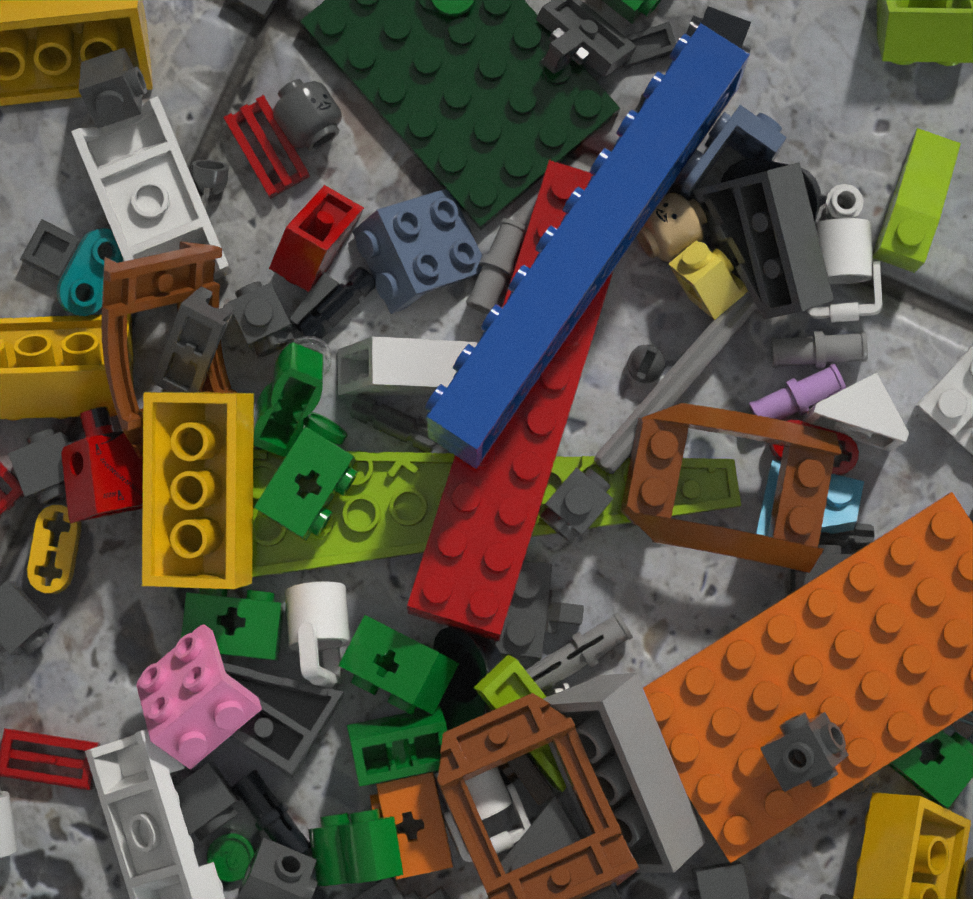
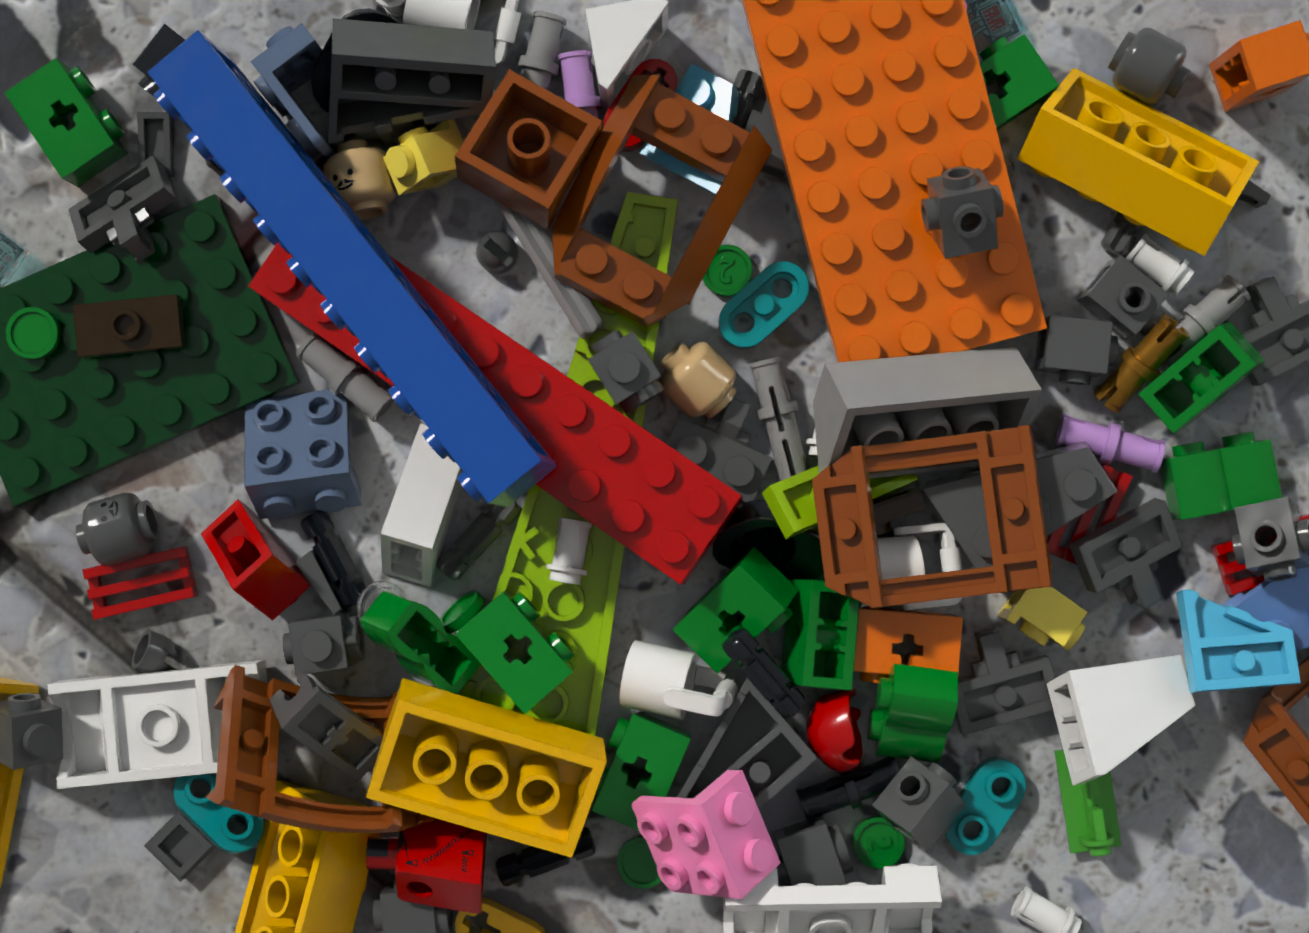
camera: 70 degrees left, 5 degrees up
(130, 565) = (537, 861): none -> black axle
(149, 649) = (637, 864): none -> green piece
(319, 786) = (835, 731): none -> red hair
(351, 704) = (763, 673): none -> black axle
(405, 504) = (569, 551): none -> white pin
(483, 71) = (129, 326): none -> dark brown plate
(589, 571) = (698, 379): none -> tan head
(673, 607) = (762, 305): none -> teal plate
(693, 569) = (728, 271): none -> green piece
(741, 360) = (527, 148): none -> dark orange brick

